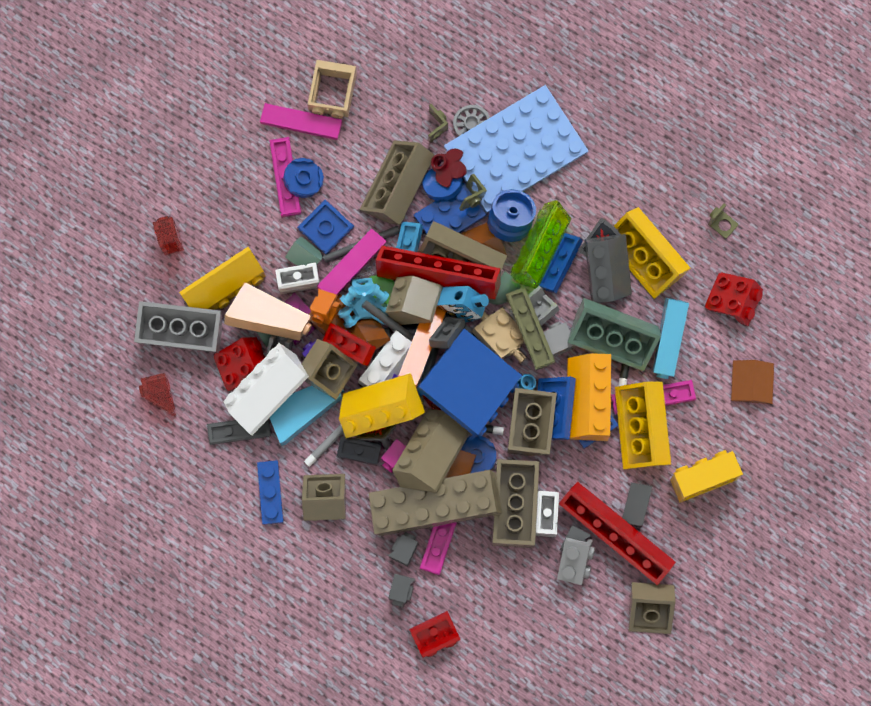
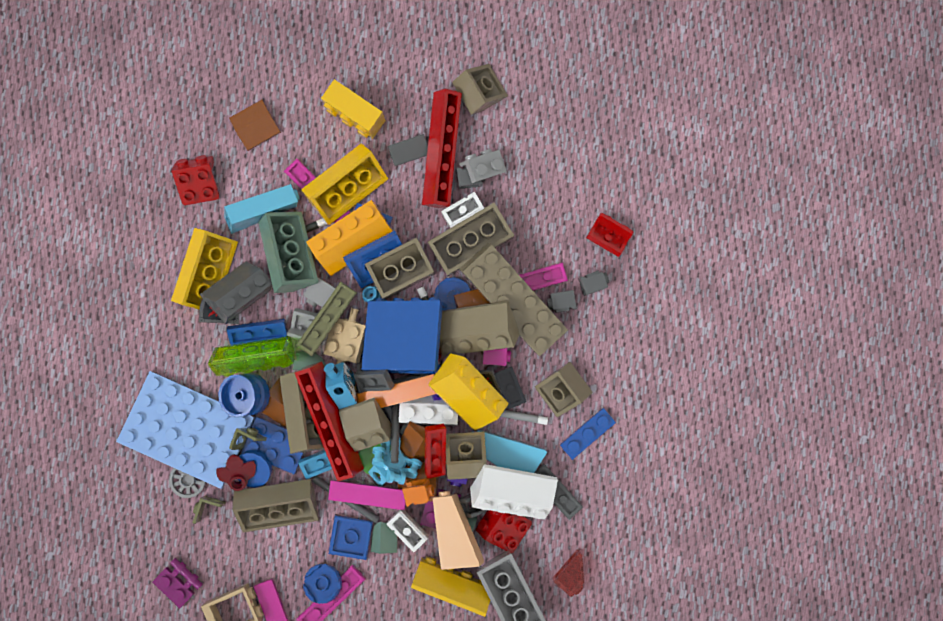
camera: 125 degrees left, 10 degrees up
(389, 54) = (173, 586): none -> magenta plate
(718, 215) = (137, 235): olive bracket -> none

